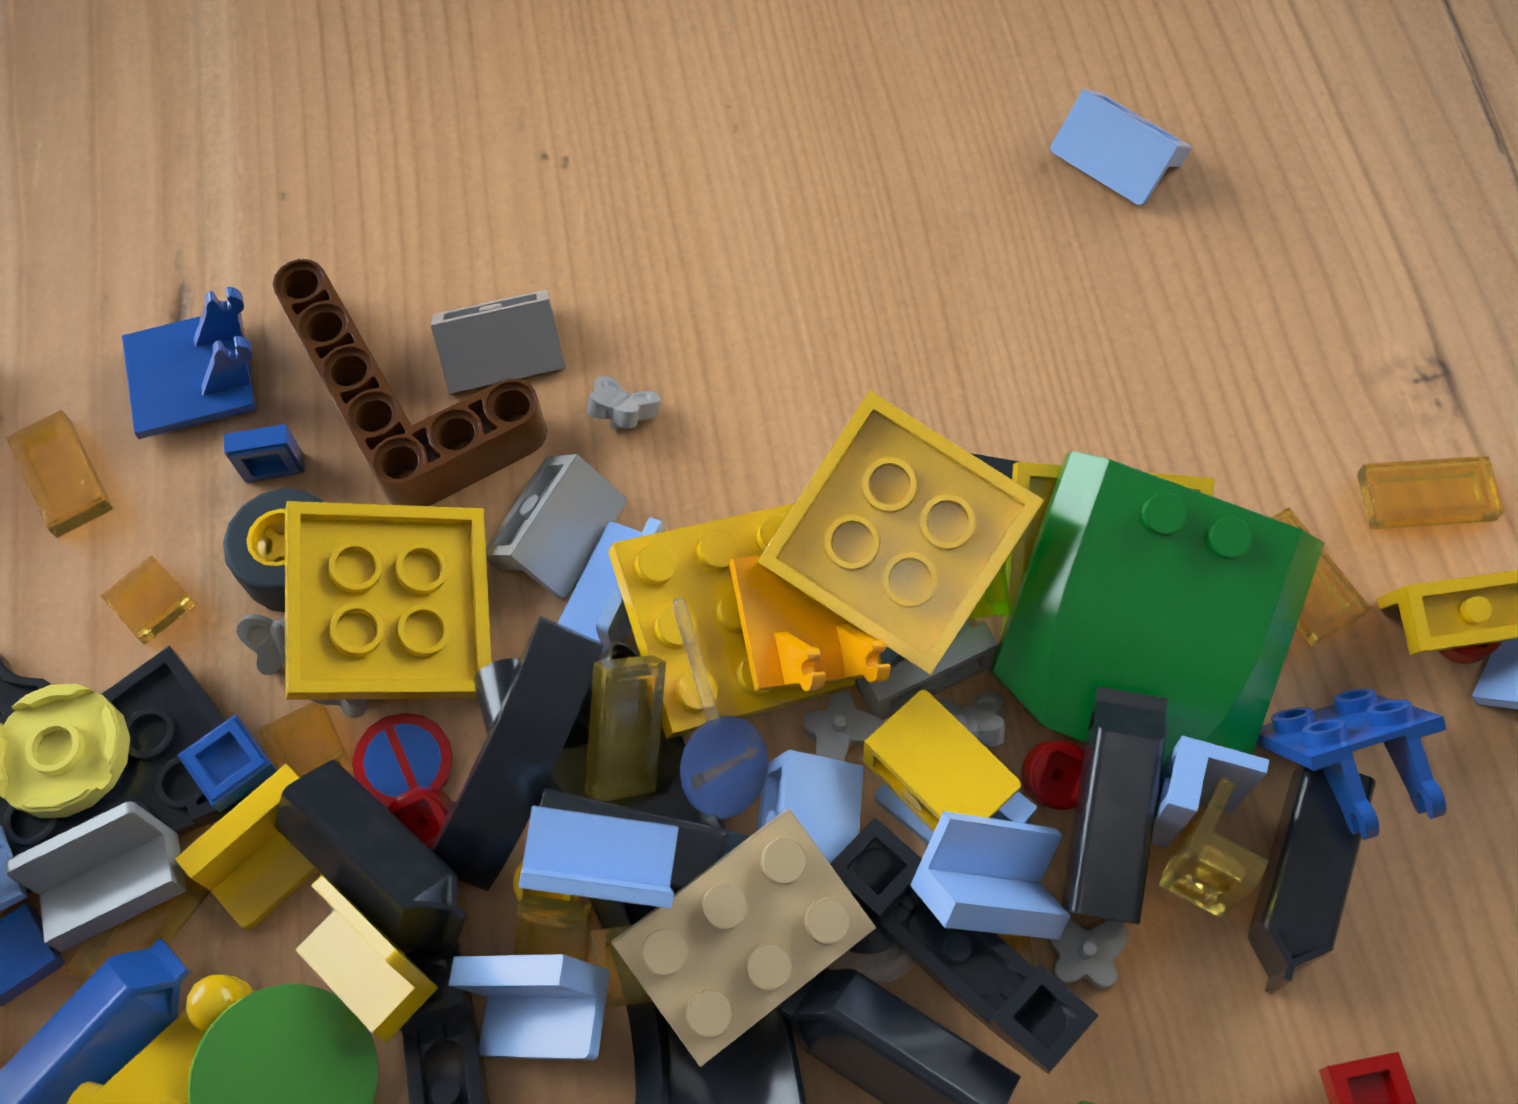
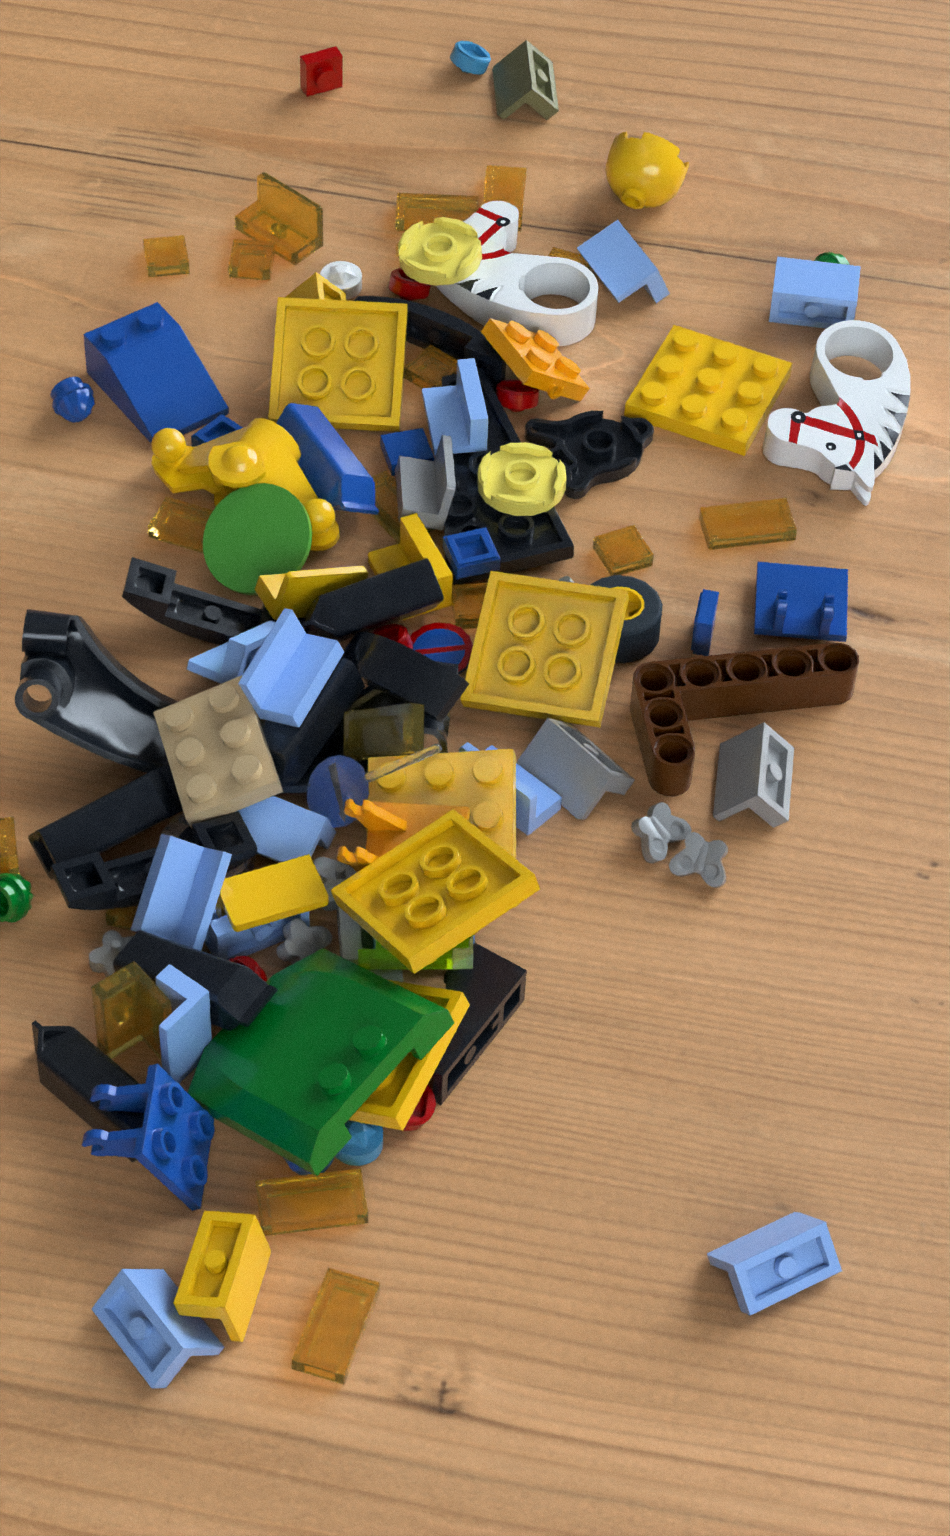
camera: 105 degrees right, 15 degrees down
(643, 349) = (701, 858): none -> light grey piece

